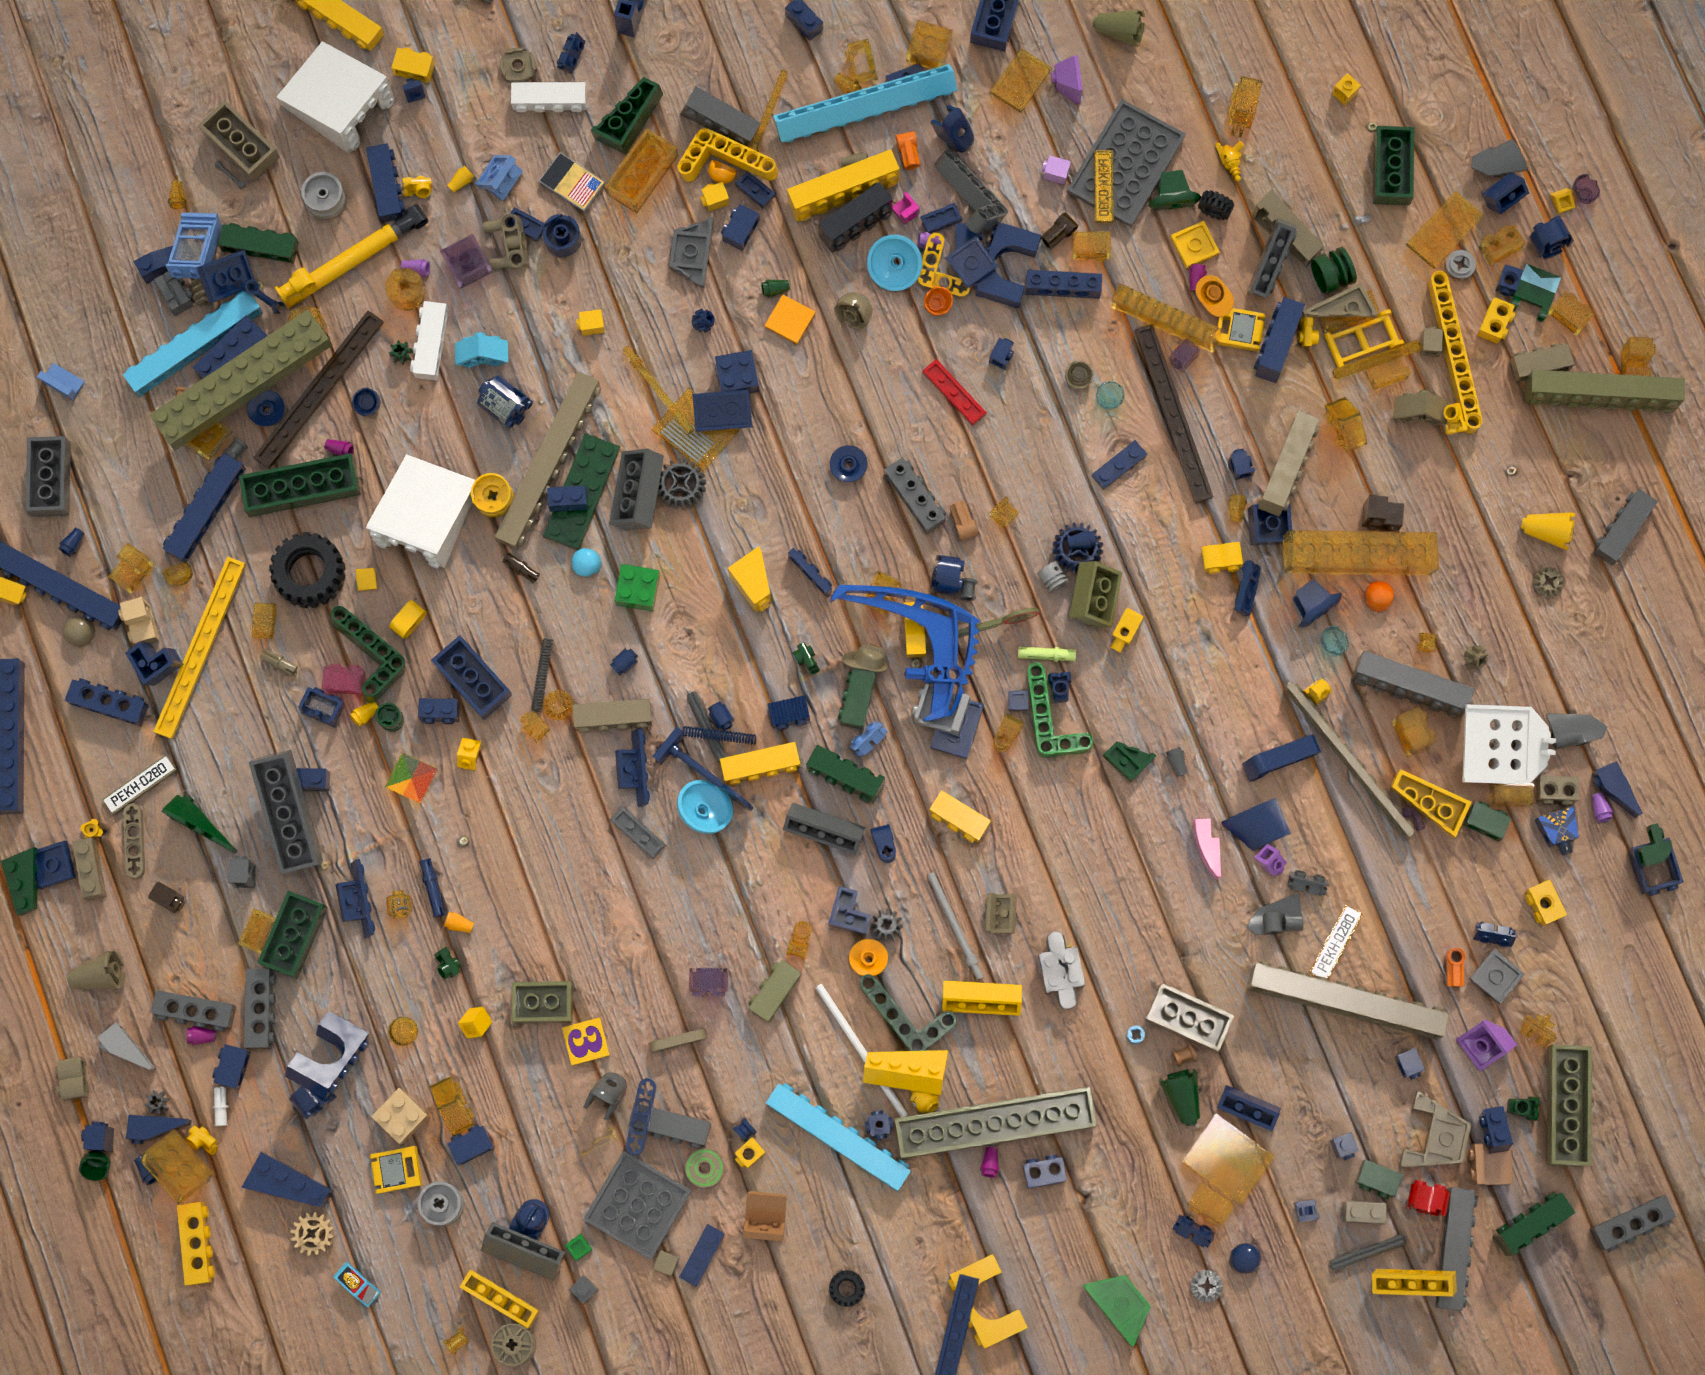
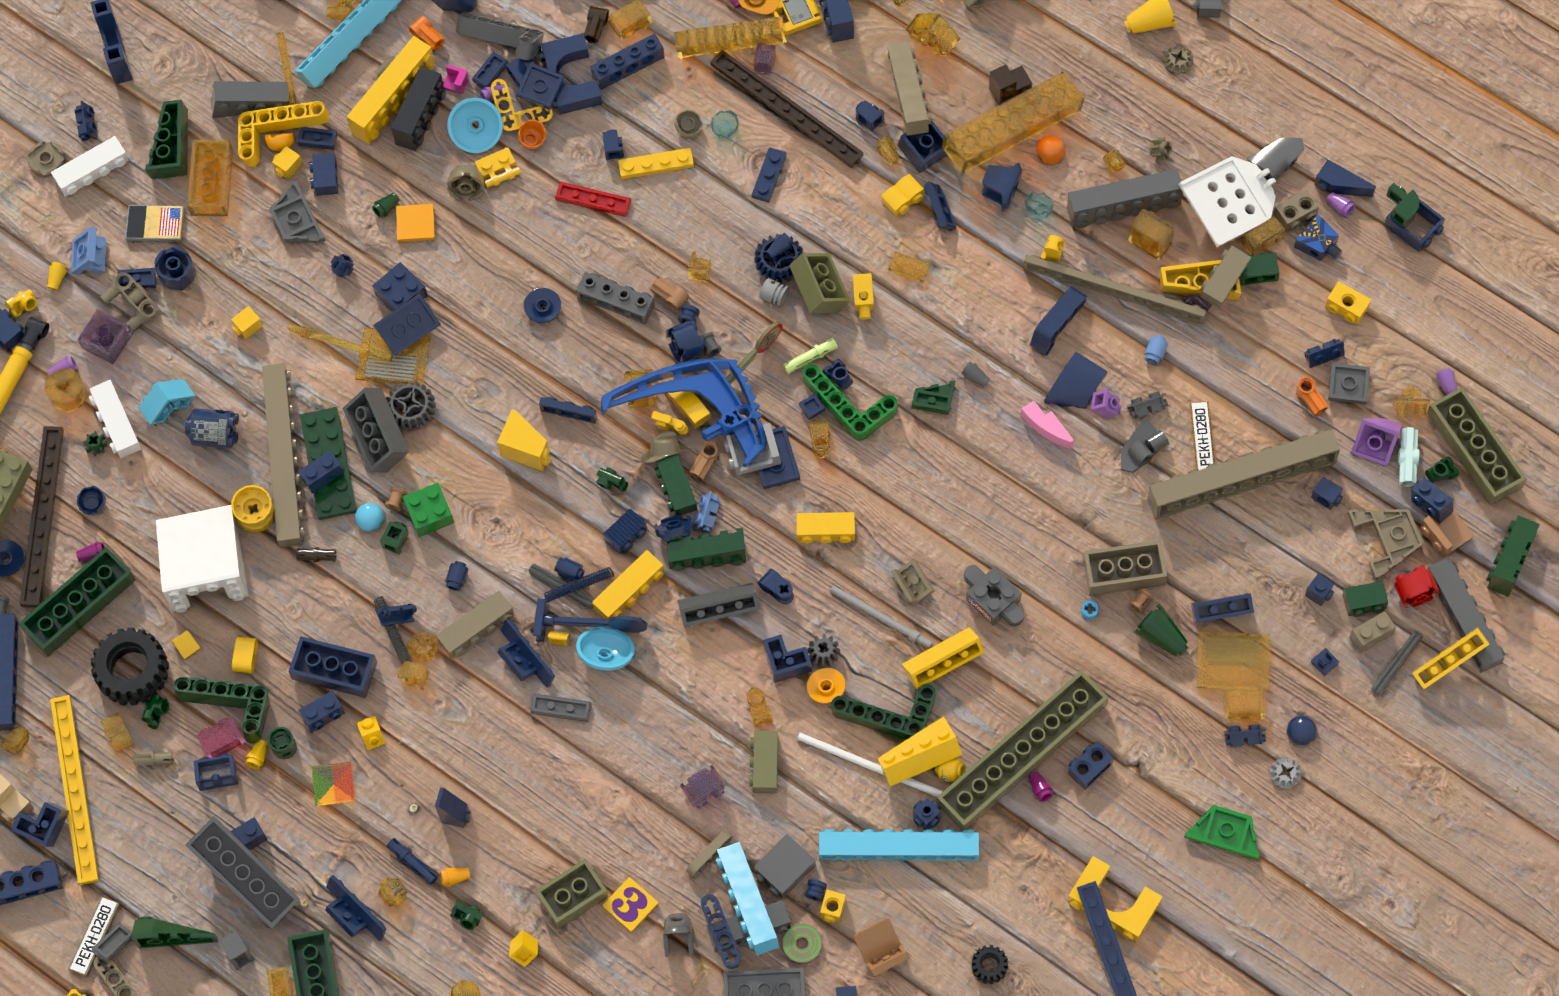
camera: 30 degrees left, 10 degrees down
(149, 800) = (112, 943): none -> dark grey tile
(307, 619) = (153, 711): none -> dark green plate
(490, 867) = (452, 809): none -> dark blue slope
(552, 664) = (396, 614): none -> dark blue hinge
(588, 591) = (392, 530): none -> dark green brick
(616, 560) = (395, 499): none -> medium nougat bush
(675, 769) = (559, 637): none -> yellow slope
(680, 1104) = (748, 899): none -> brick
(731, 1092) = (784, 866): none -> dark grey brick
(830, 735) = (673, 527): none -> dark blue plate
(883, 637) = (667, 422): none -> yellow plate
(891, 307) = (497, 163): none -> yellow plate
(893, 693) = (704, 462): none -> medium nougat piece
(966, 551) = (688, 313): none -> dark blue wheel
(1028, 393) = (655, 163): none -> yellow plate
(1185, 626) = (909, 267): none -> clear yellow plate
(1348, 838) = (1155, 349): none -> medium blue brick
(1450, 814) = (1224, 276): none -> dark tan brick
(1503, 1076) = (1408, 457): none -> light aqua piece
(1584, 1030) = (1447, 380): none -> medium lavender cone

